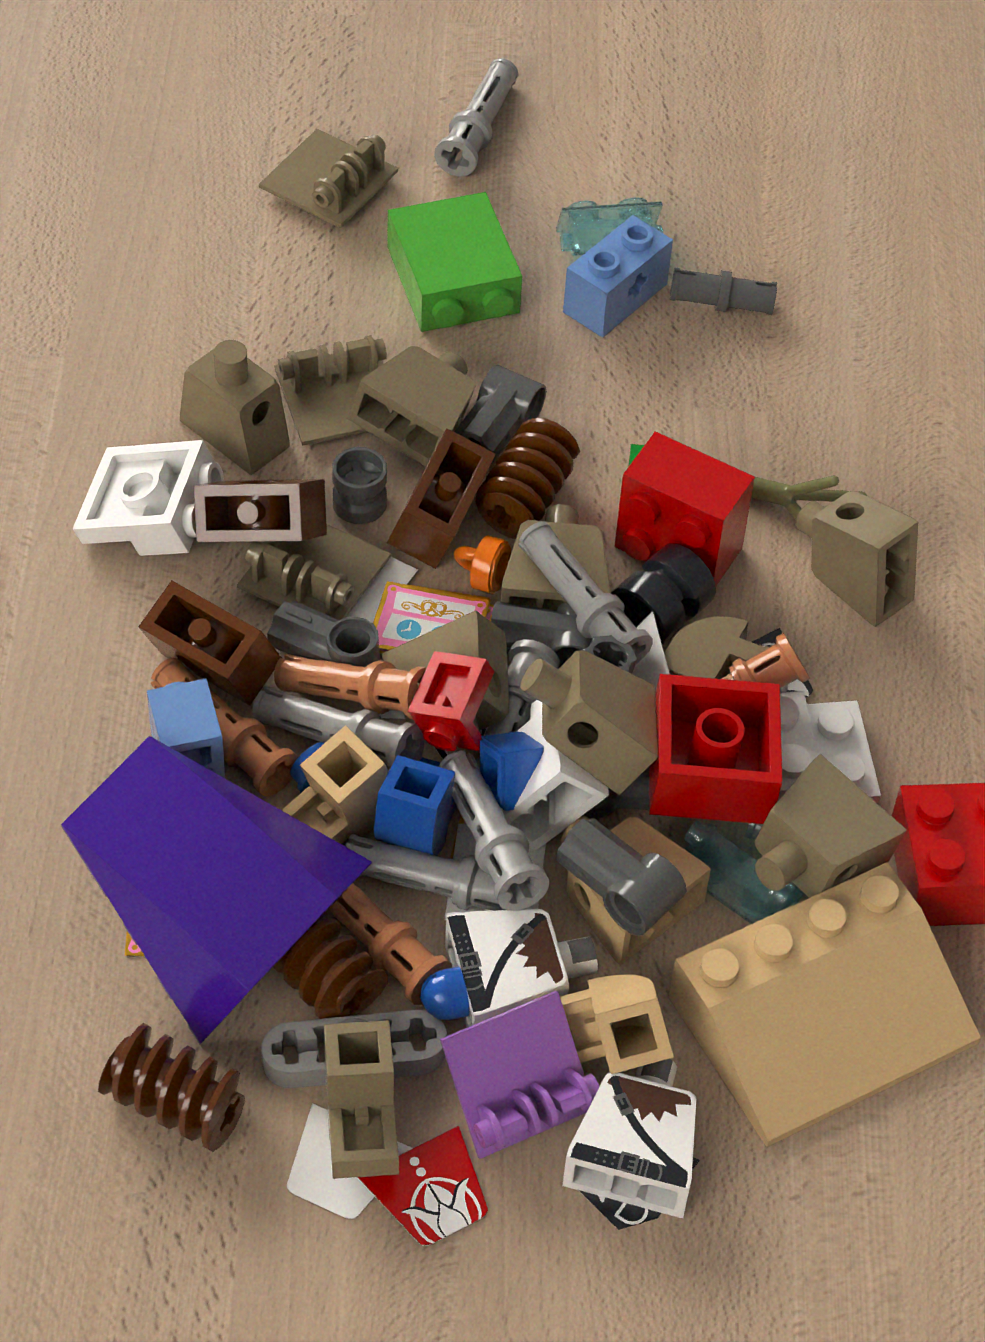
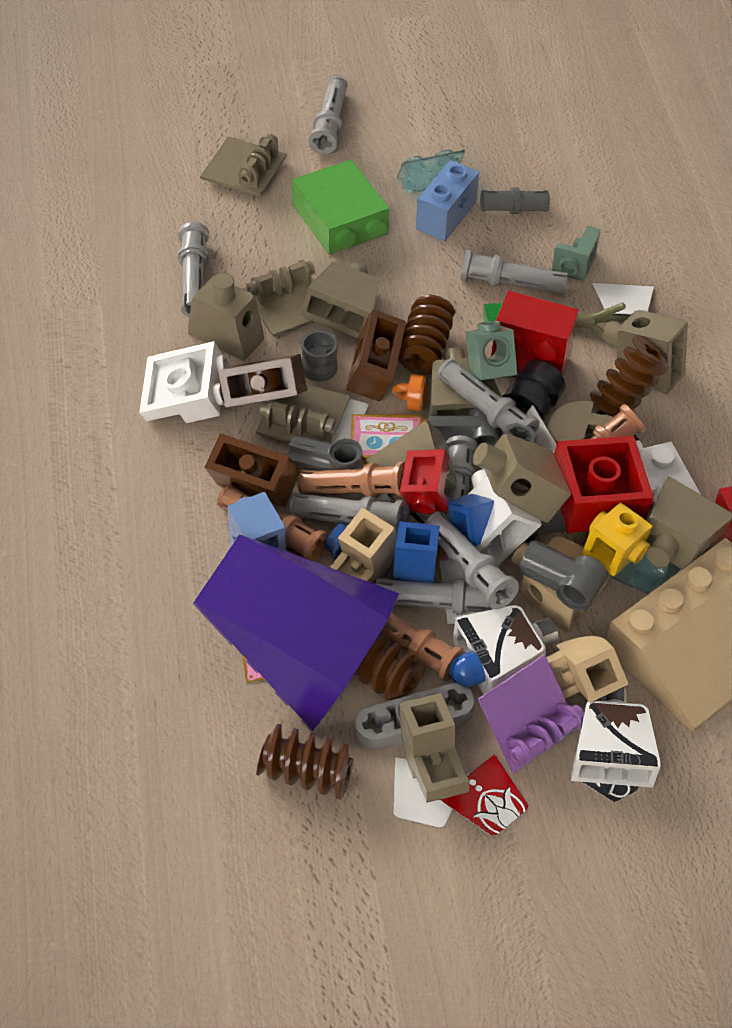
camera: 10 degrees left, 0 degrees up
(213, 306) = (193, 258): none -> light grey pin
(501, 408) = (397, 292): dark grey piece -> none
(616, 542) = (502, 362): none -> sand green brick
(664, 396) = (496, 270): none -> light grey pin
(714, 836) = (617, 531): none -> yellow brick
(798, 396) = (577, 259): none -> sand green bracket
(814, 593) = (633, 380): none -> reddish brown piece
(855, 466) = (632, 295): none -> white sticker

